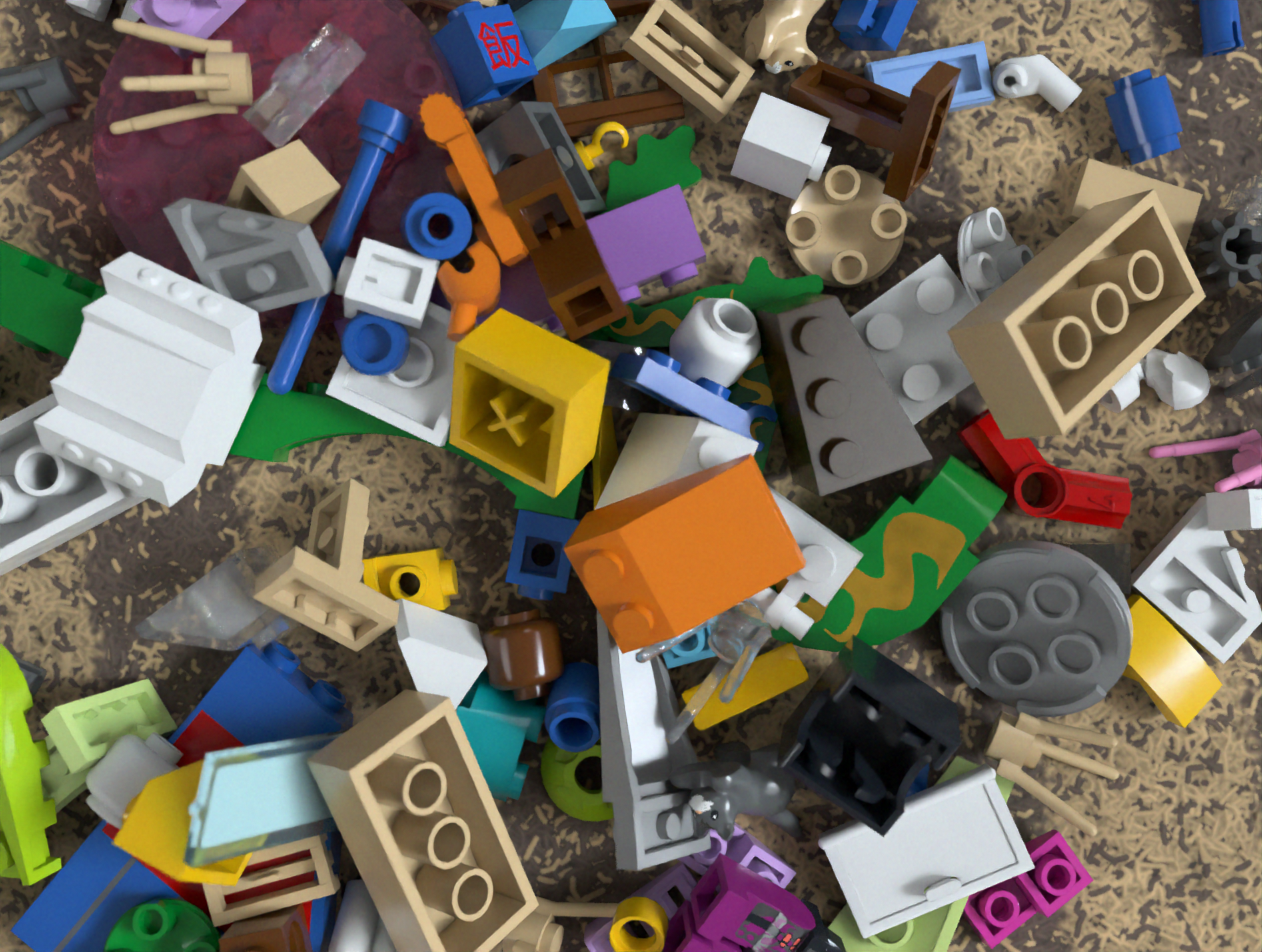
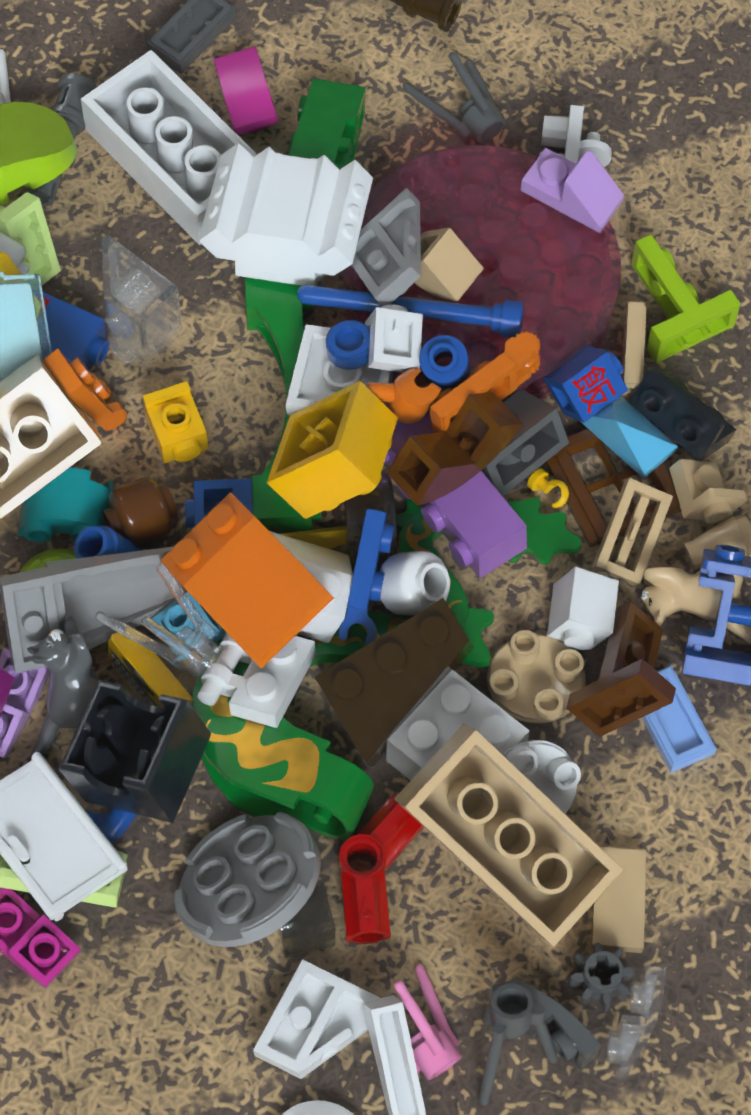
camera: 70 degrees right, 25 degrees down
(220, 77) = (511, 211): tan plant -> none
(304, 84) = (522, 261): clear plate -> none
(324, 582) = (160, 355): tan bracket -> none
(353, 700) = (86, 390): none -> orange hinge
(439, 650) = (129, 443): white slope -> none
(1021, 743) = (148, 894): tan plant -> none
(1034, 76) = (700, 794): white arm -> none
(1144, 116) = (692, 884): blue brick -> none
(1167, 665) = (242, 999): yellow slope -> none
(1175, 377) = (485, 952): white arm -> none

